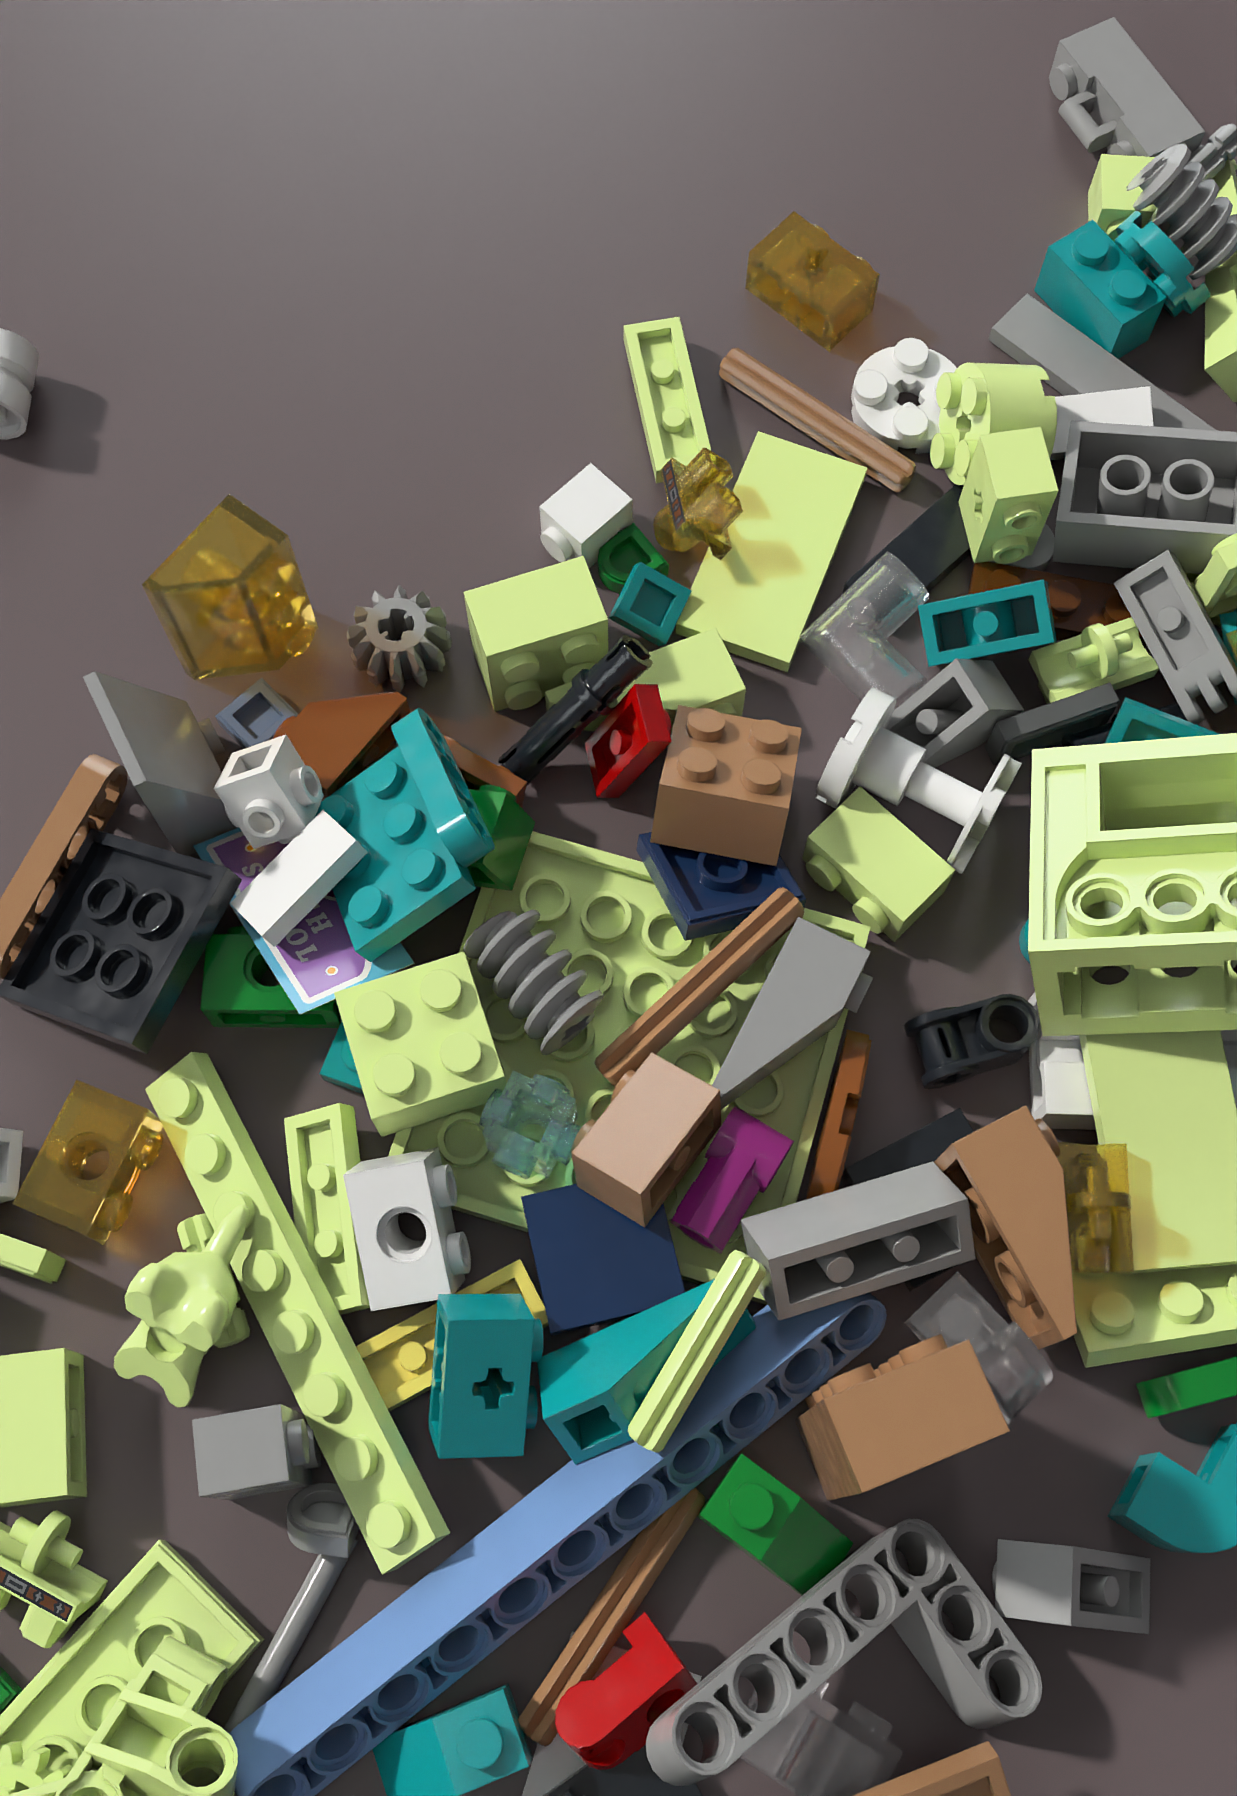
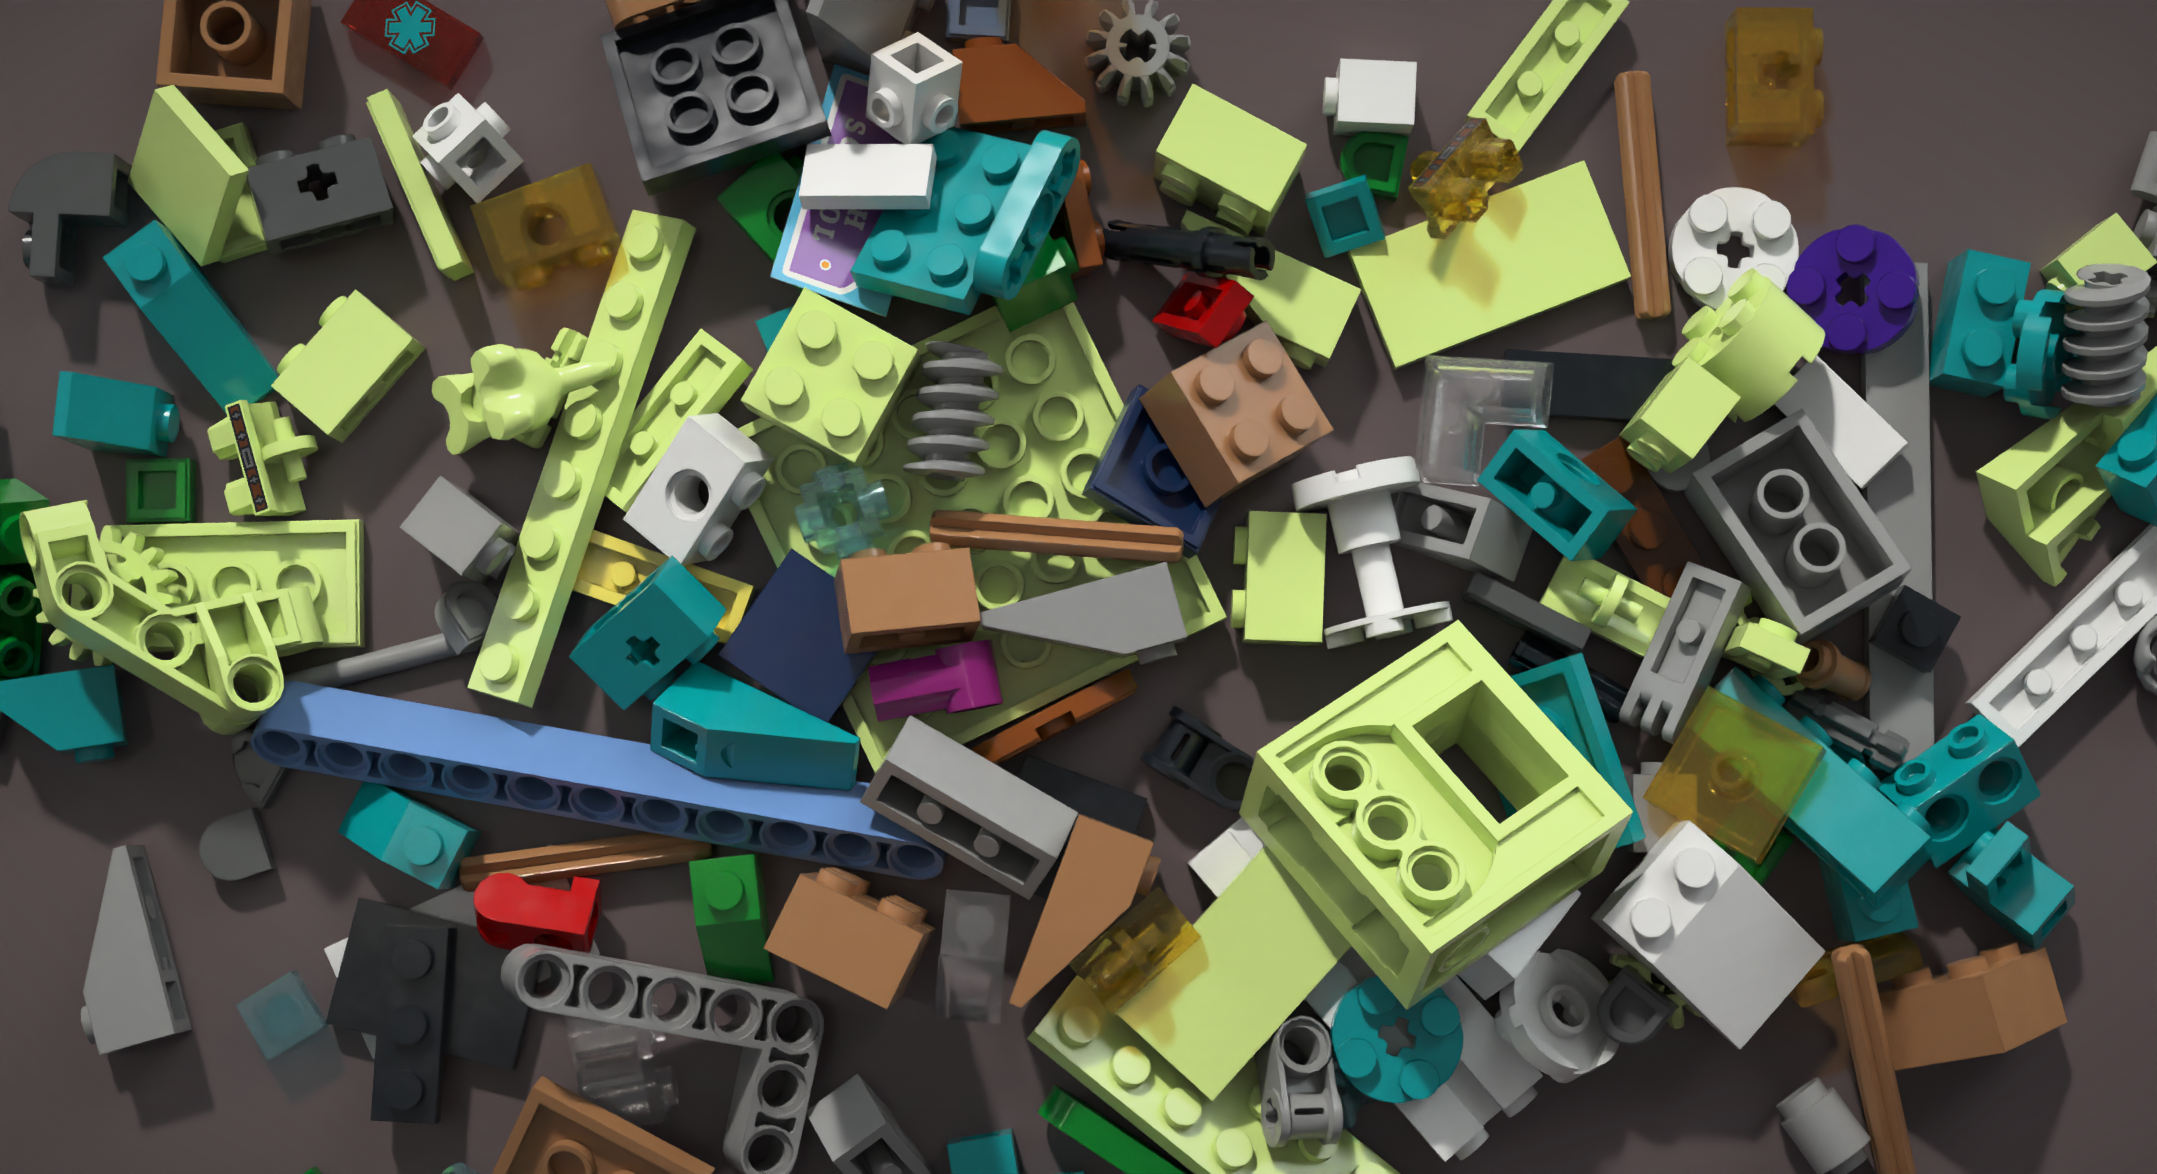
camera: 50 degrees right, 15 degrees up
(696, 1351) = (788, 764): yellowish green axle -> none
(1012, 309) = (1891, 290): none -> dark purple plate

